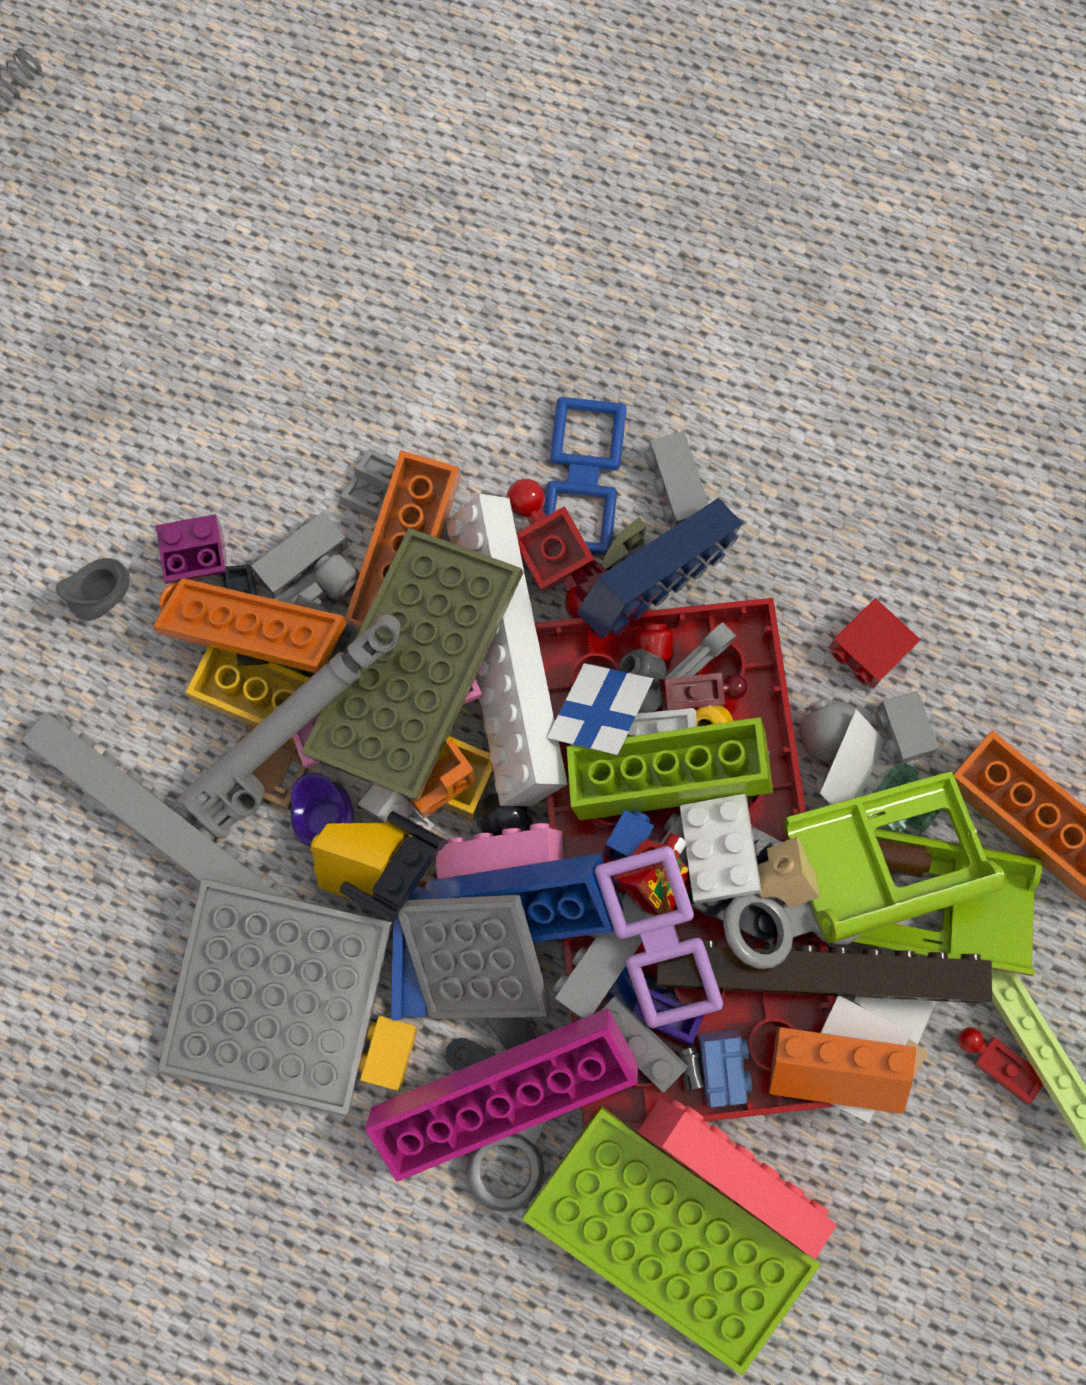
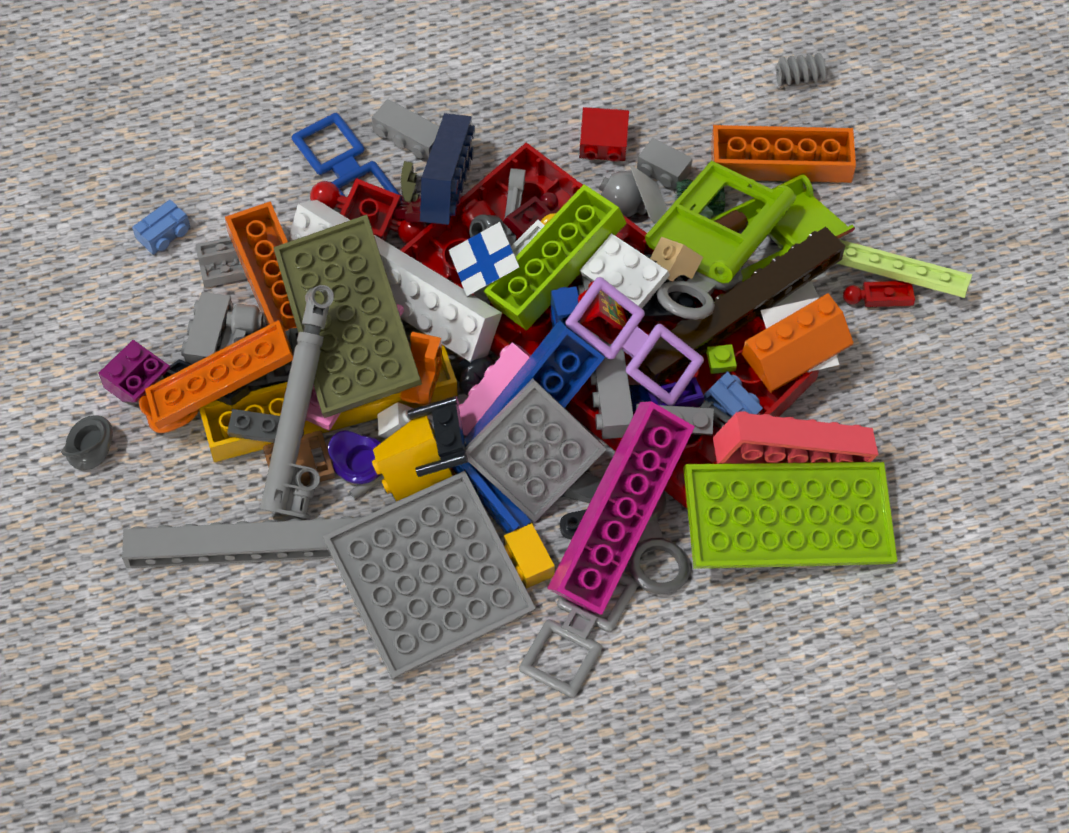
camera: 40 degrees left, 15 degrees down
(240, 704) = (253, 425): none -> dark grey plate
(350, 405) = (161, 227): none -> medium blue brick
(369, 1170) = (576, 629): none -> light grey bar
(750, 1014) = (721, 359): none -> lime plate

